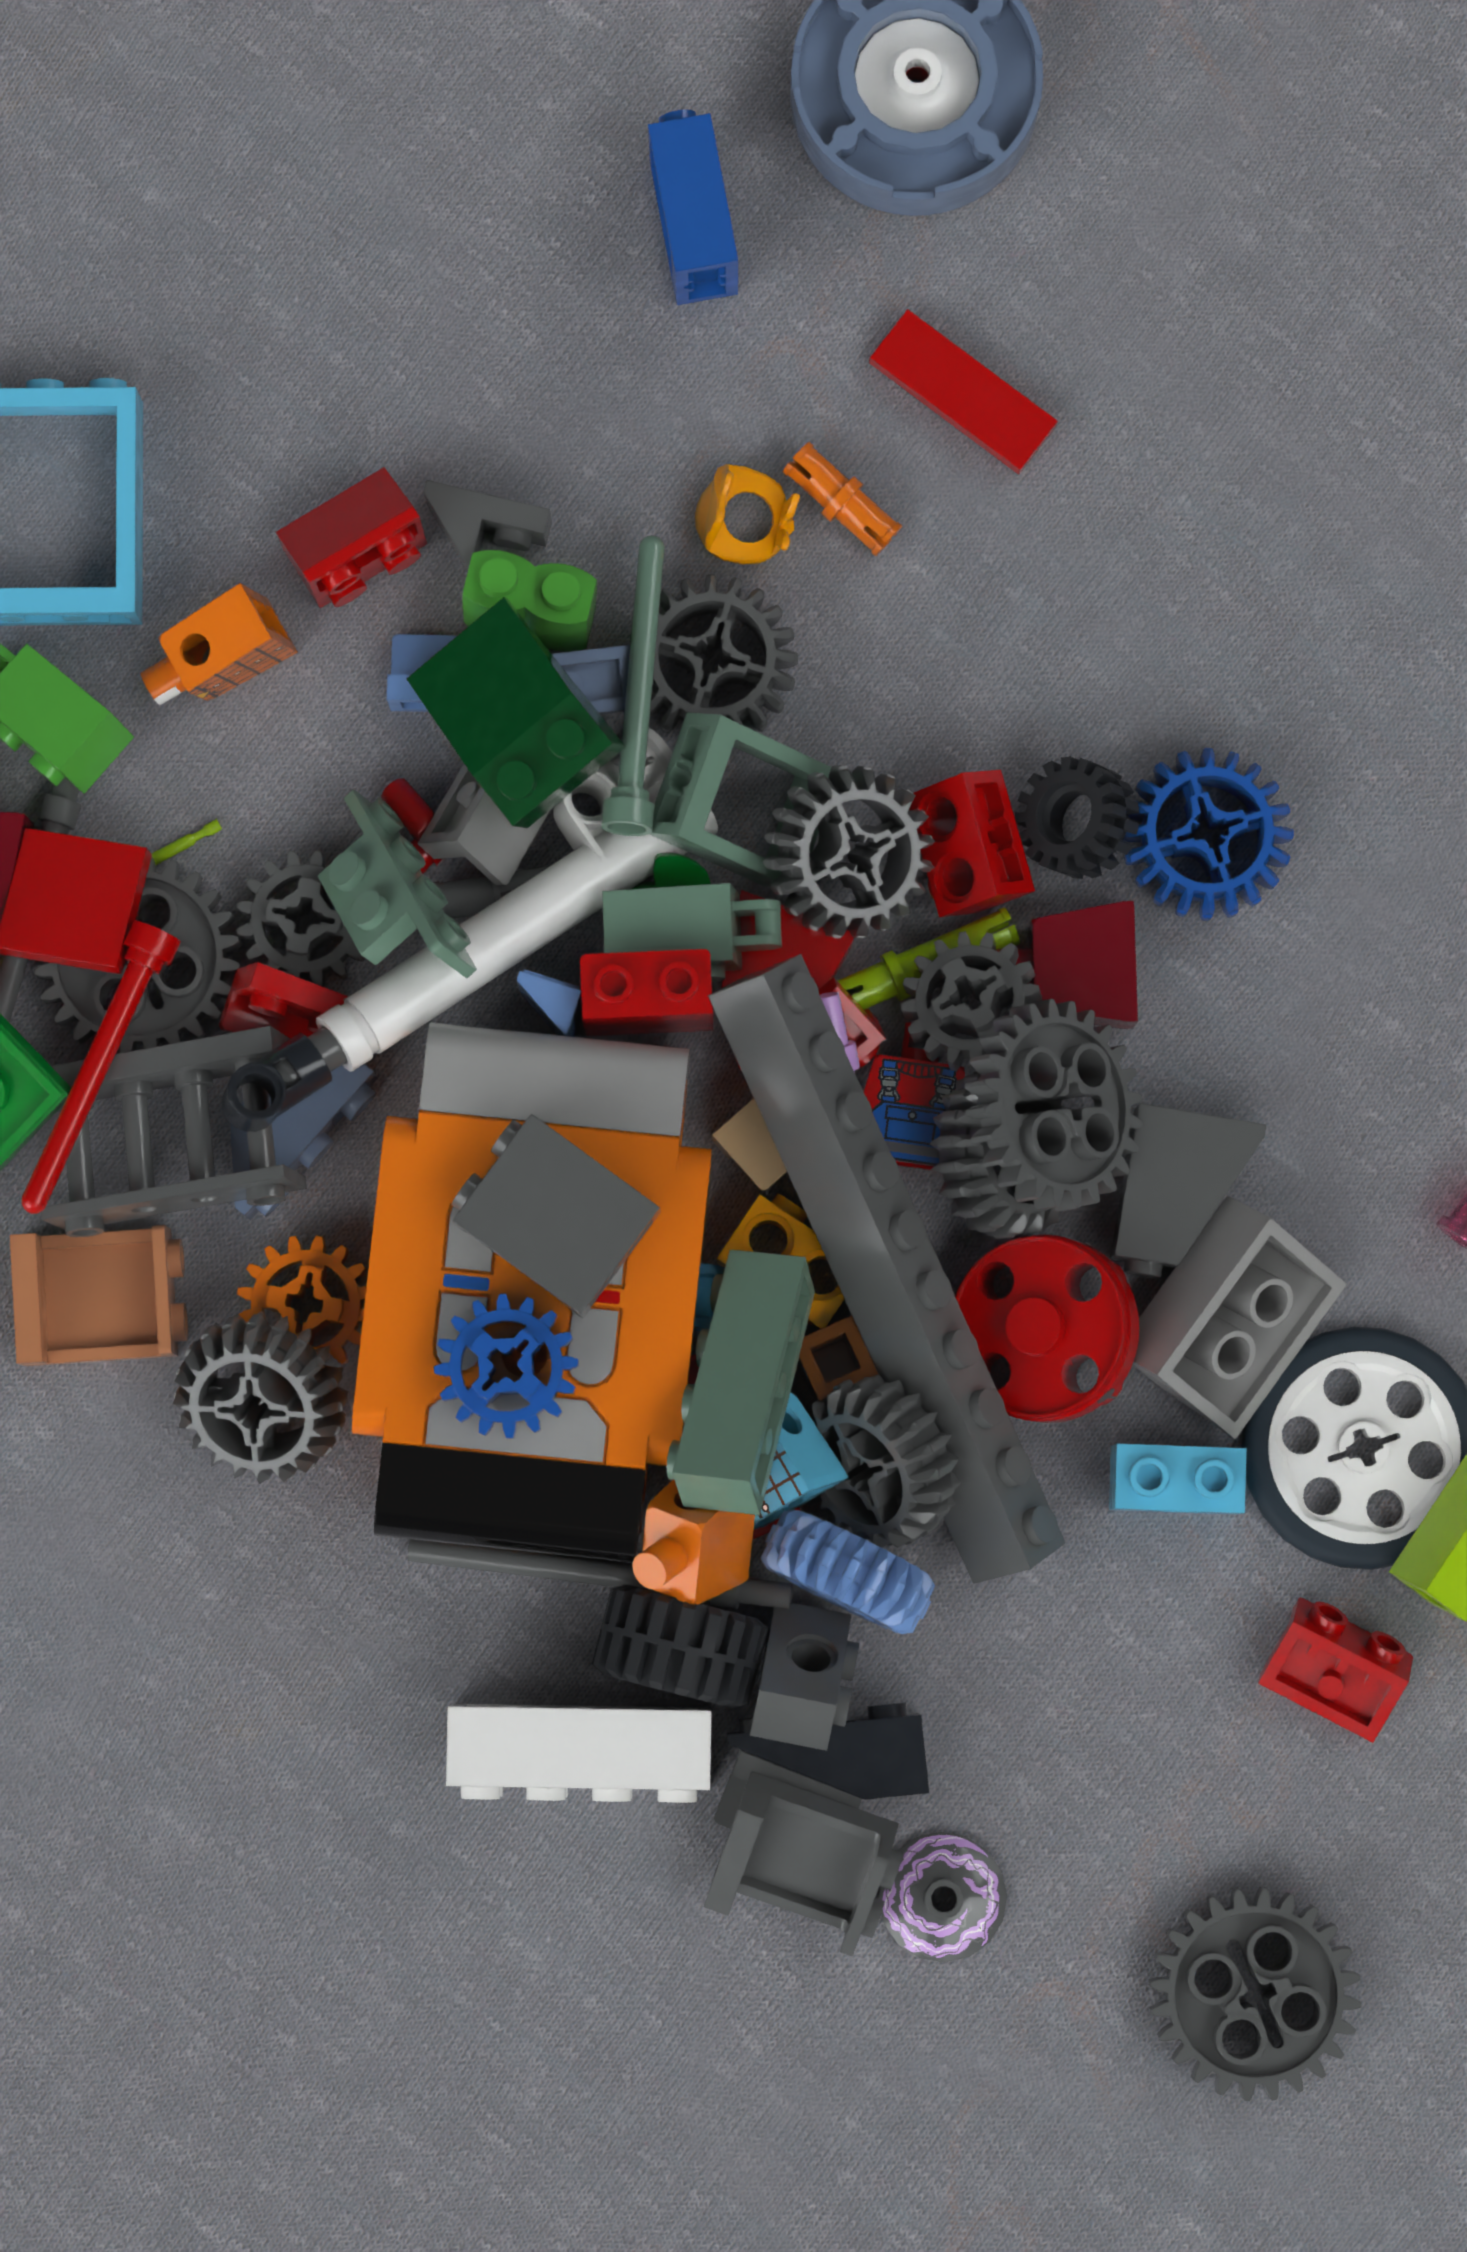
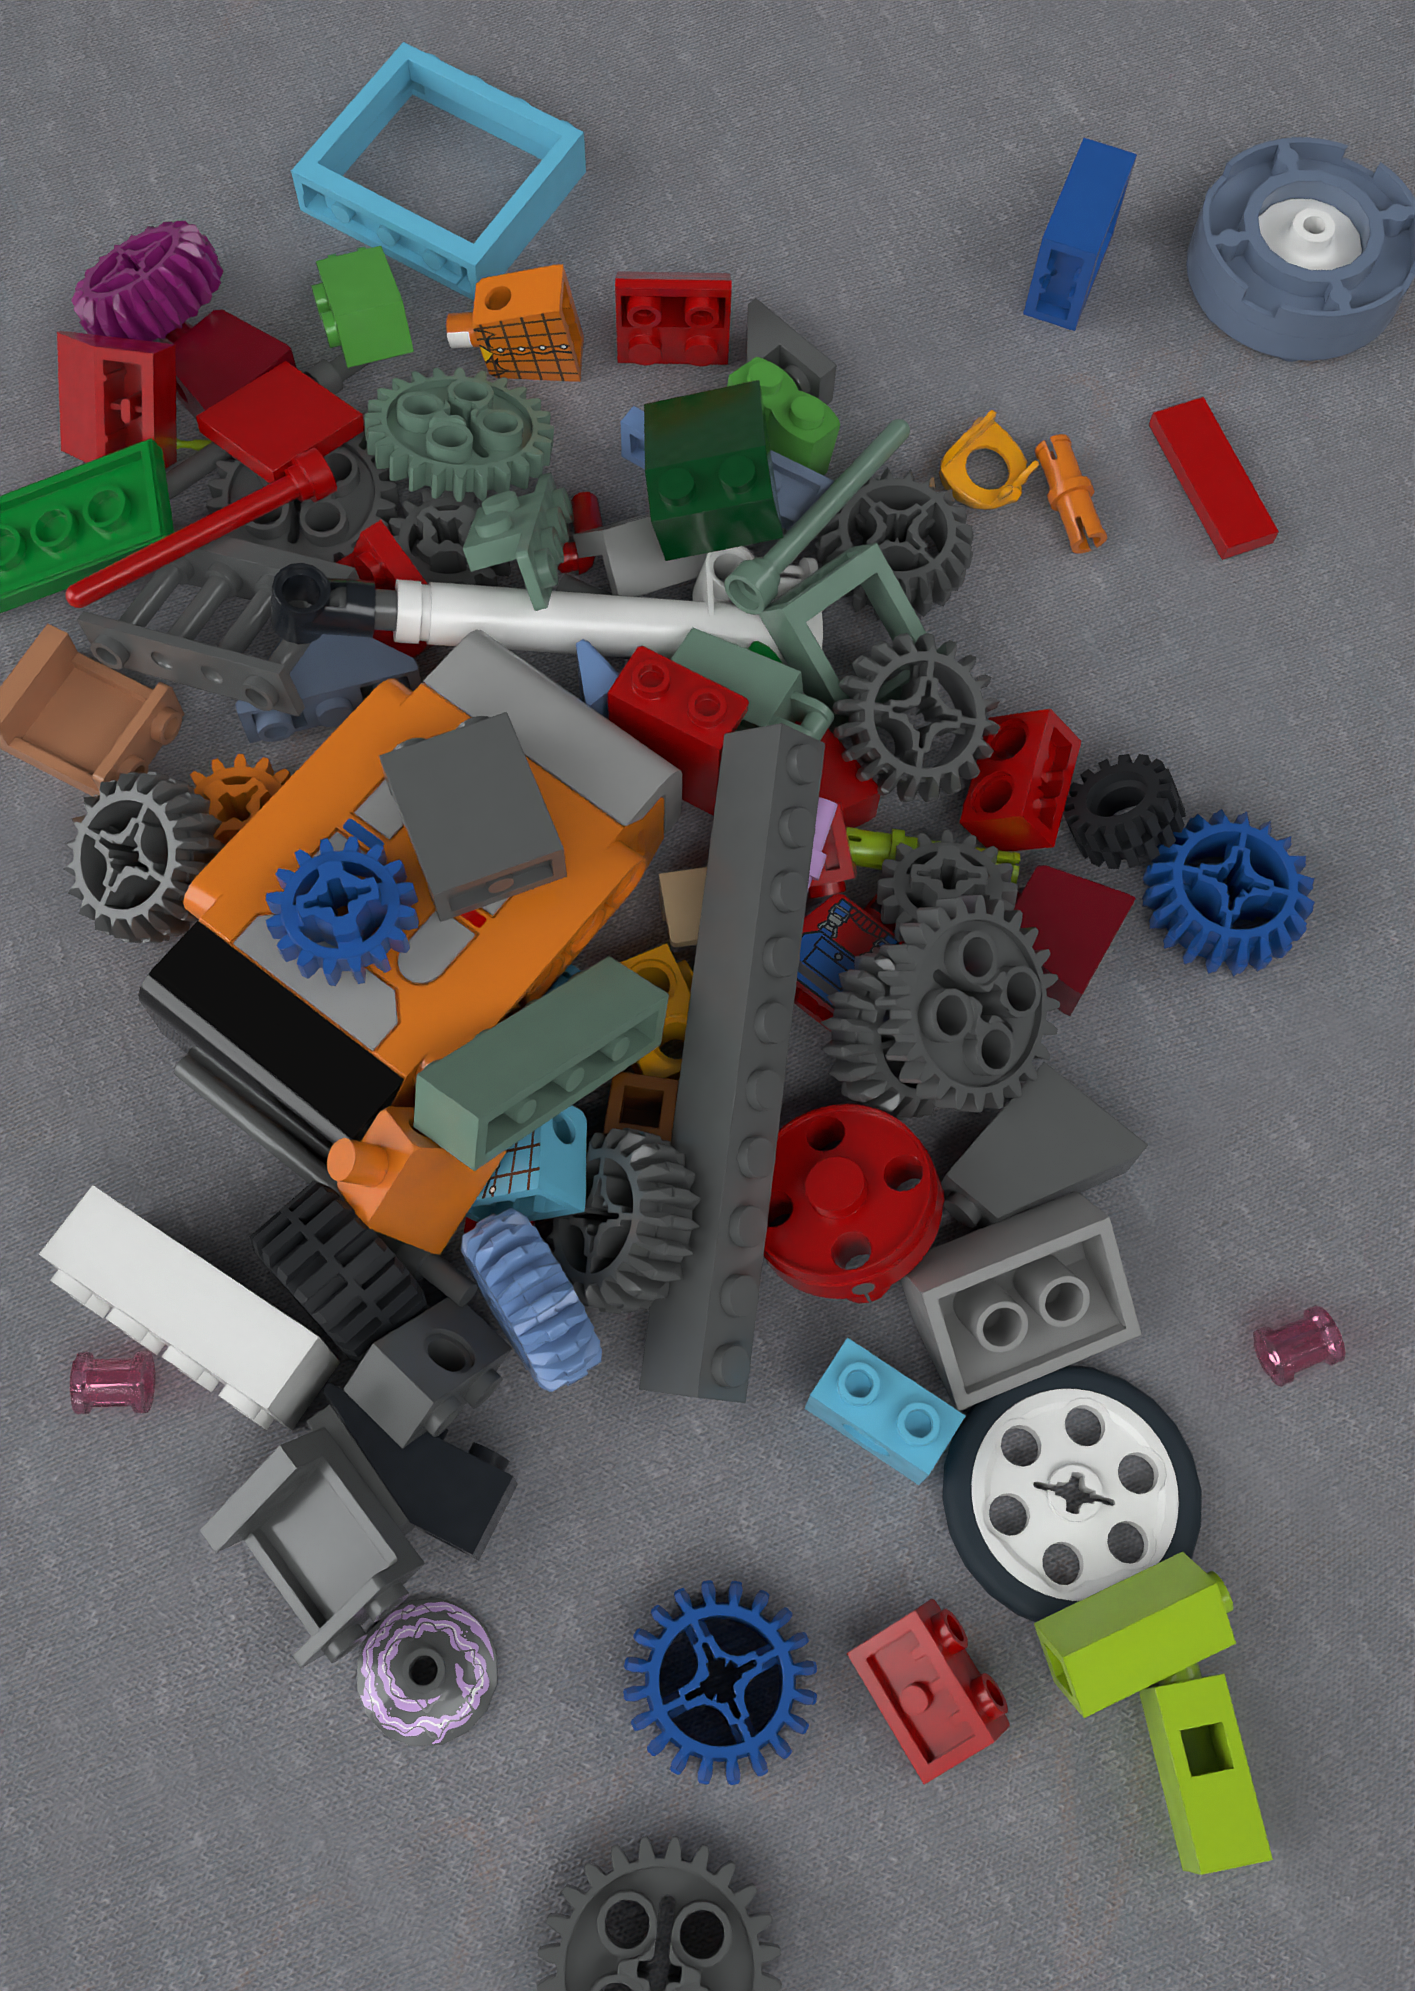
camera: 30 degrees right, 15 degrees down
(239, 801) = (458, 434): none -> sand green gear
(547, 1840) = (112, 1382): none -> clear pink bush
(1222, 1794) = (774, 1653): none -> blue gear

